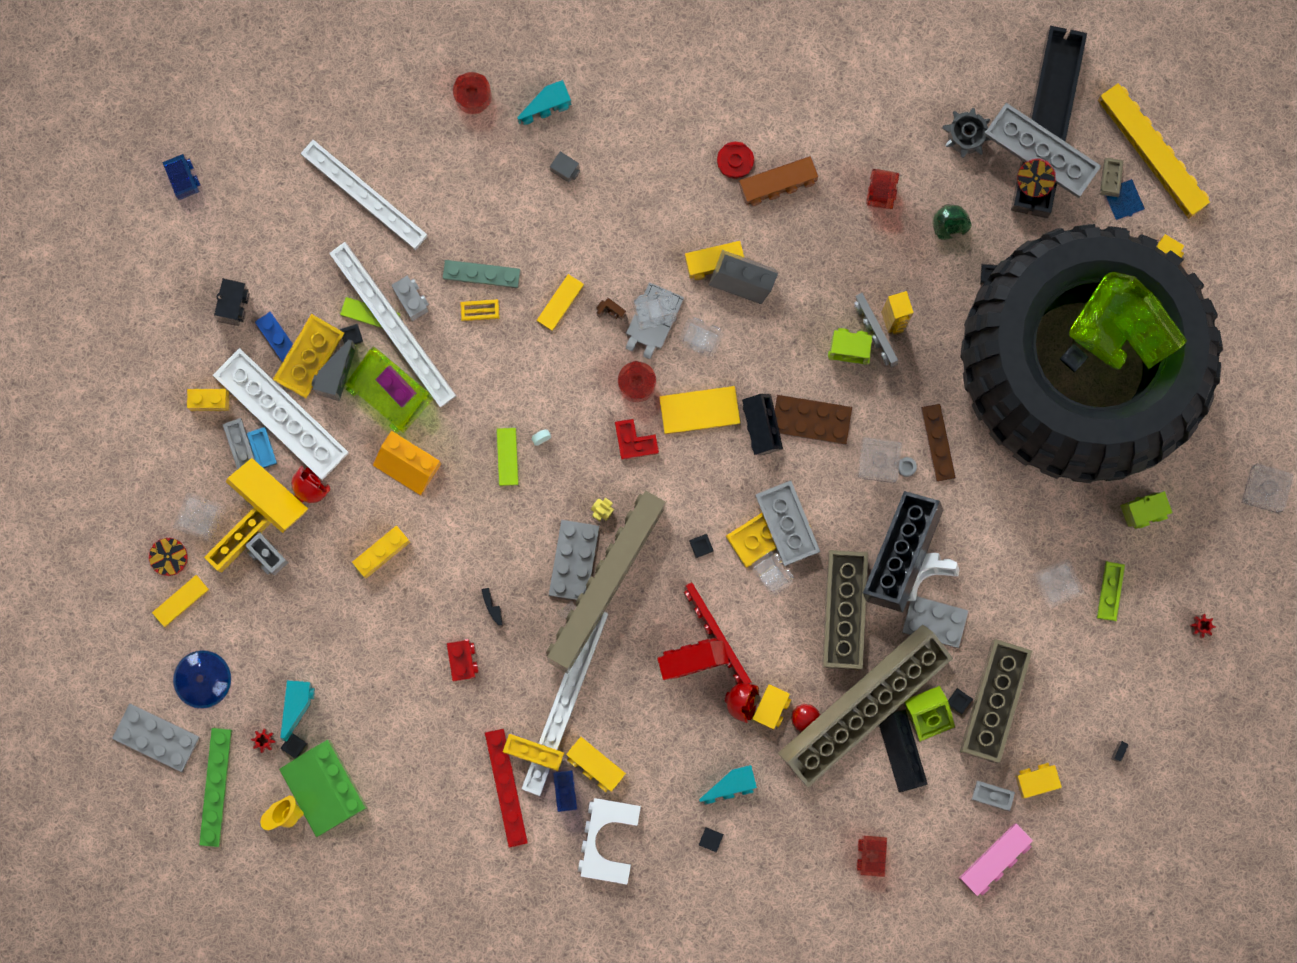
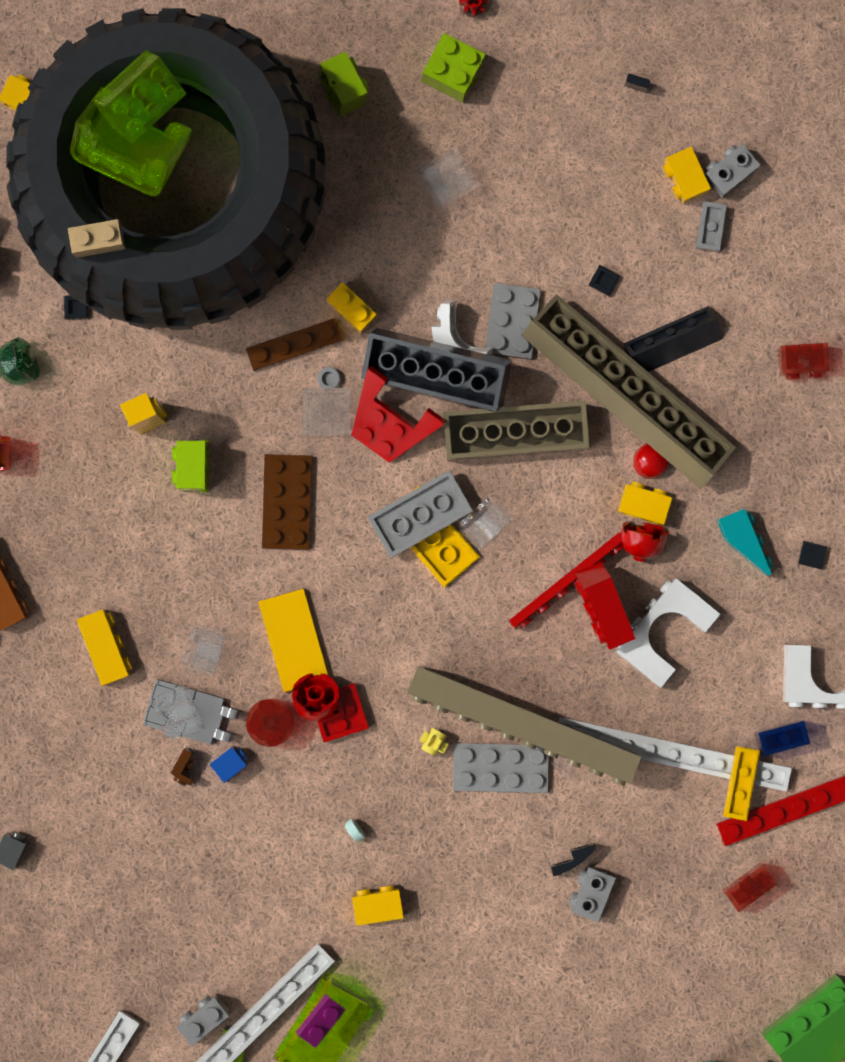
camera: 100 degrees left, 5 degrees up
(381, 552) = (524, 1006): yellow brick -> none
(406, 463) = (410, 992): light orange slope -> none
(448, 746) = (749, 887): none -> clear red brick
(461, 660) = (641, 886): red bracket -> none
(462, 619) = (592, 893): none -> light grey brick
(478, 446) = (378, 905): none -> yellow brick
(479, 317) = (209, 950): yellow tile -> none
(481, 273) = (159, 935): sand green plate -> none
(507, 456) = (384, 868): lime tile -> none
(560, 302) = (182, 831): yellow tile -> none
(595, 765) = (744, 706): yellow brick -> none
(608, 345) = (229, 763): none -> blue brick
(652, 419) = (315, 697): none -> red cylinder
(690, 720) = (674, 599): none -> white arch
(701, 546) = (460, 615): black tile -> none
(743, 277) = (121, 609): dark grey slope -> none
(762, 424) = (302, 561): black brick -> none
(861, 503) = (385, 429): none -> red wing
(878, 335) = (159, 444): light grey plate -> none
(929, 713) = (624, 313): lime slope -> none
(962, 492) = (351, 308): none -> yellow brick
(995, 701) = (600, 236): dark tan brick -> none
(996, 859) = (787, 214): bright pink brick -> none
(1038, 819) = (731, 170): none -> light grey brick
(1040, 281) = (96, 238): none -> tan brick
(1074, 358) = (183, 187): black tile -> none
(1110, 591) = (446, 116): lime tile -> none
(1150, 601) = (453, 67): none -> lime brick

